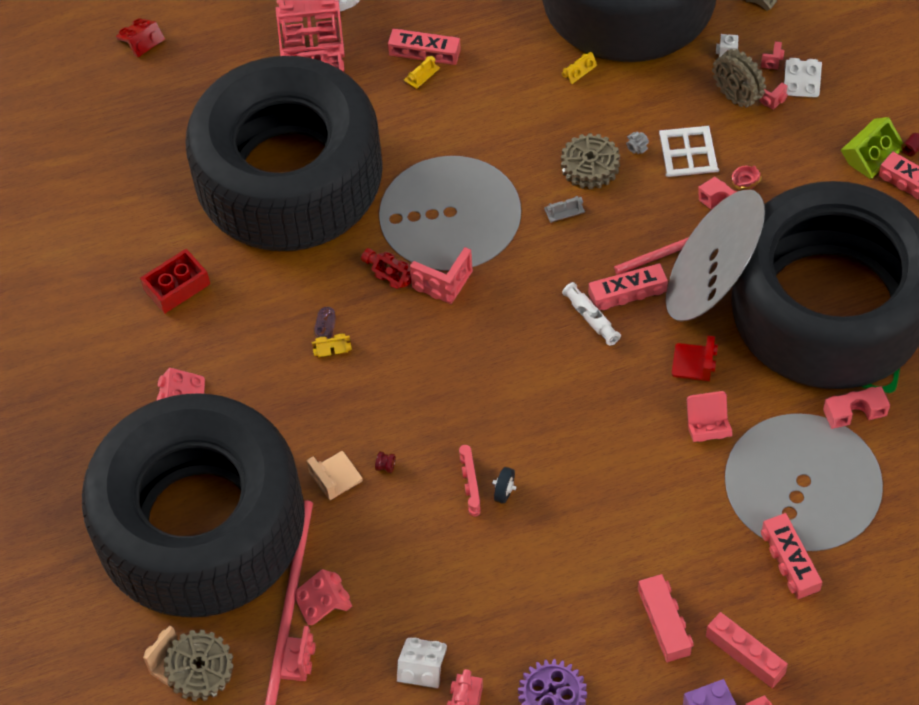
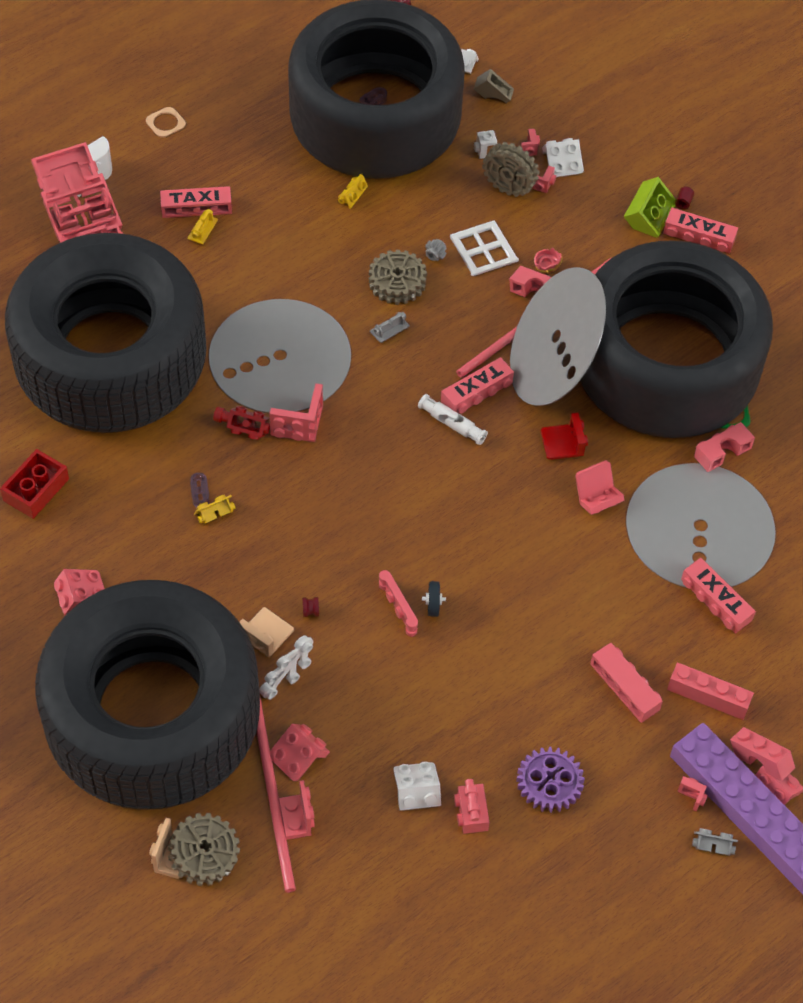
camera: 25 degrees left, 0 degrees up
(354, 498) = (287, 664): none -> white plant

